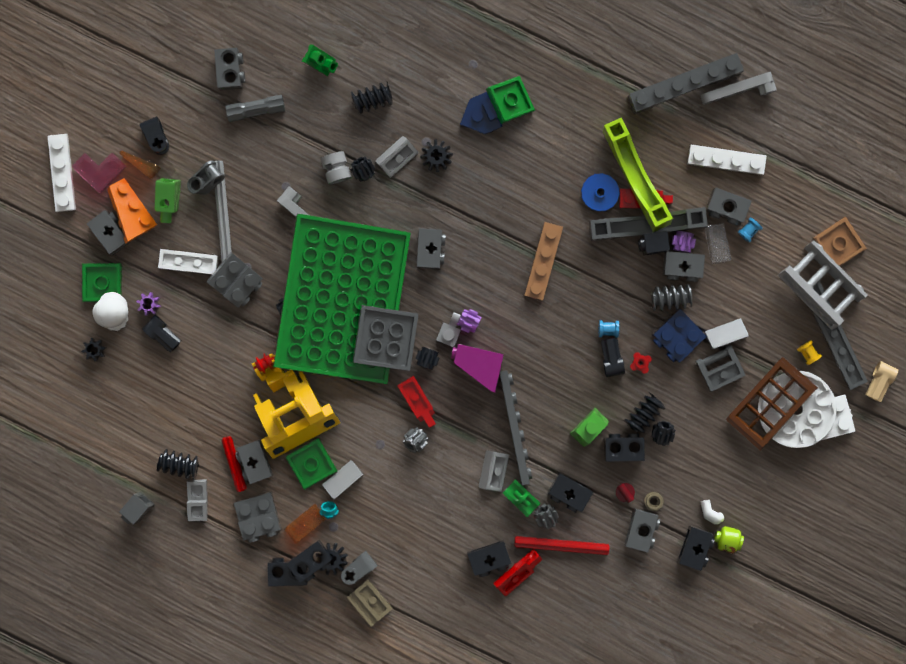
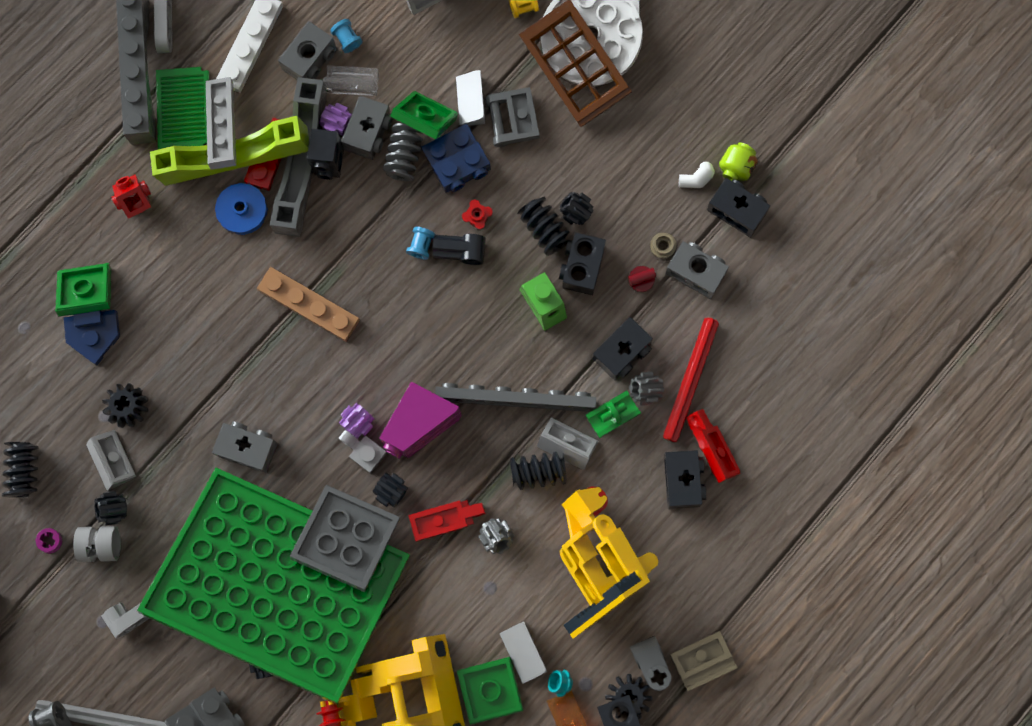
camera: 70 degrees left, 10 degrees down
(326, 127) = (41, 544): none -> magenta bush
(411, 538) = (579, 556): none -> yellow container
(468, 456) = (538, 470): none -> black piece
(587, 112) = (131, 195): none -> red brick
(656, 161) = (220, 123): none -> light grey plate
(663, 126) = (181, 107): none -> green window
(703, 305) = (424, 114): none -> green tile

